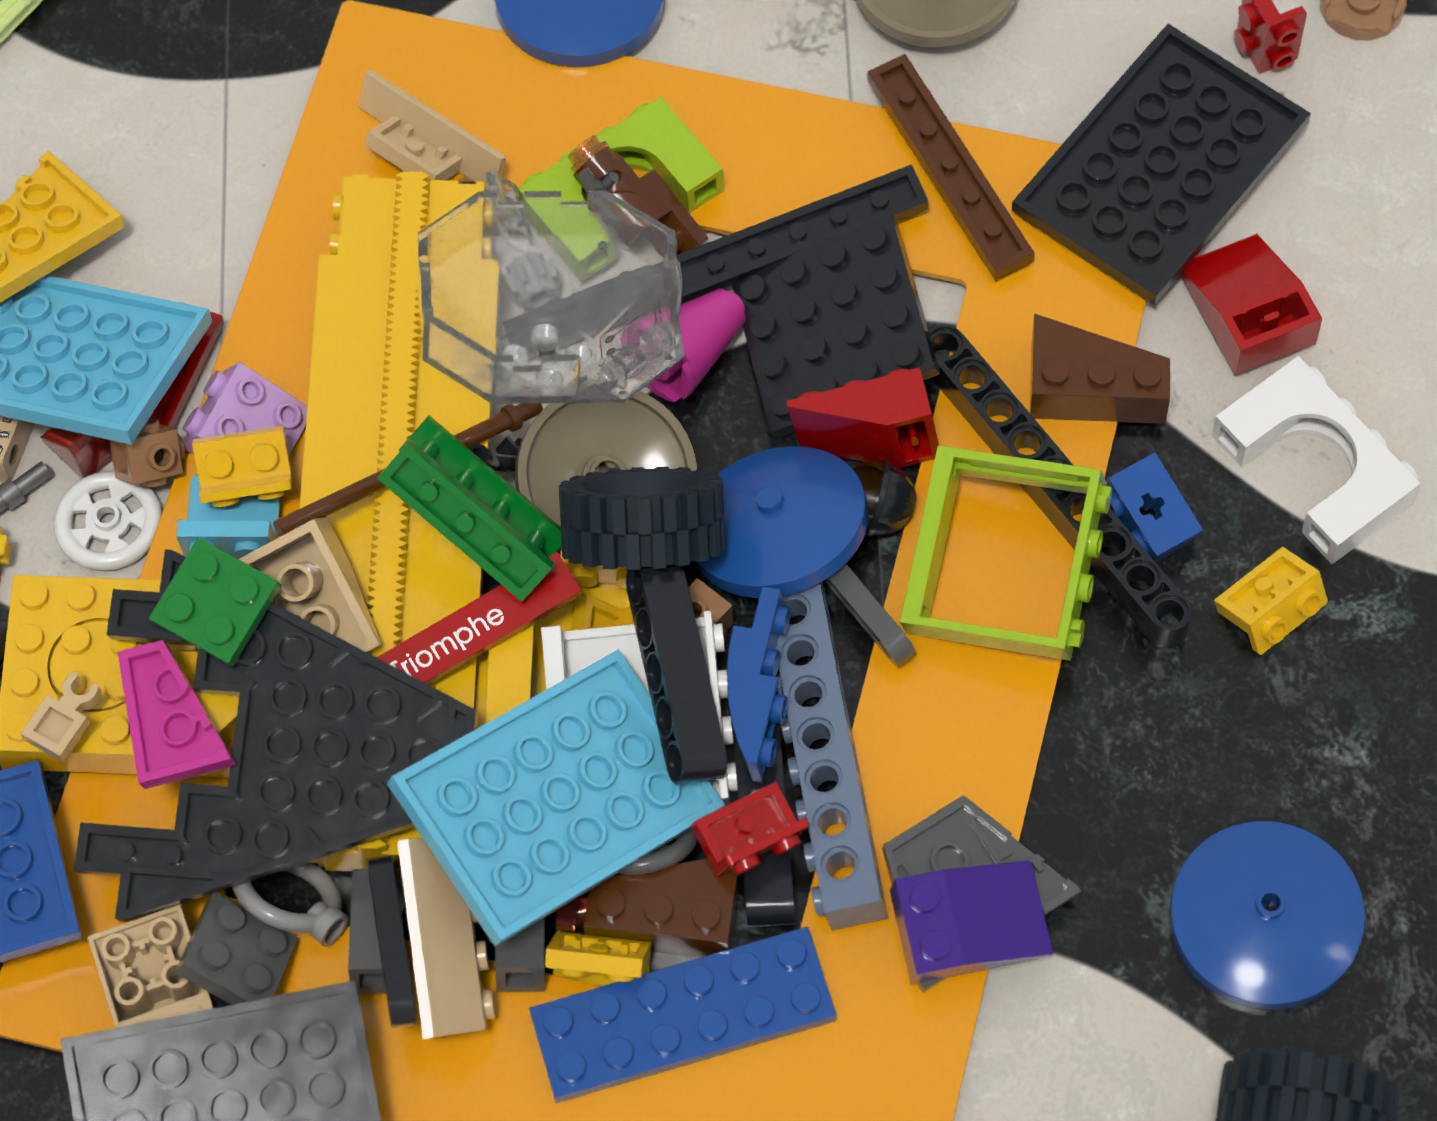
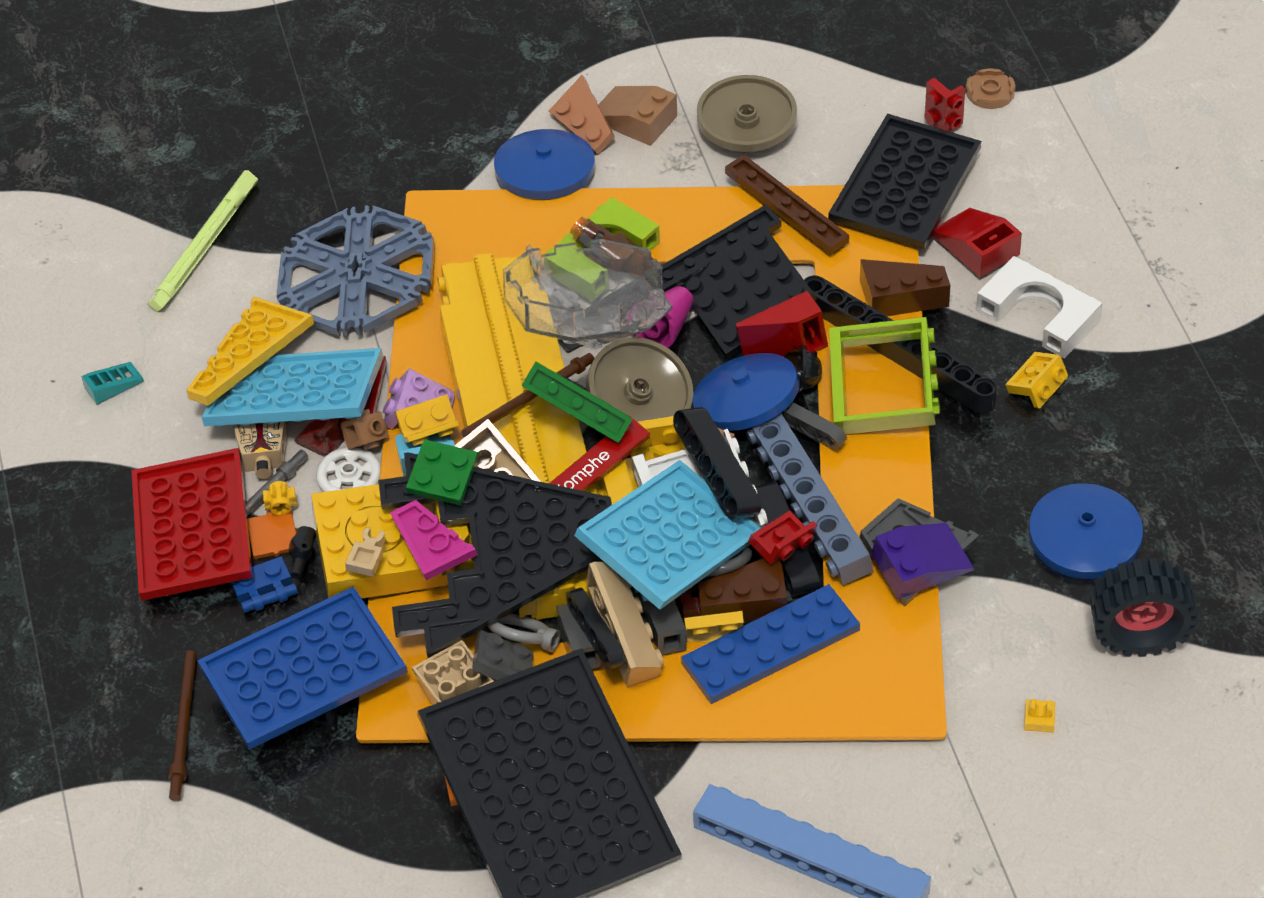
camera: 15 degrees left, 15 degrees down
(195, 119) = (373, 264): none -> sand blue plate
(420, 137) = (467, 241): tan bracket -> none
(642, 517) = (673, 390): black wheel -> none
(752, 682) = (763, 466): blue slope -> none
(1148, 487) = (959, 342): blue brick -> none

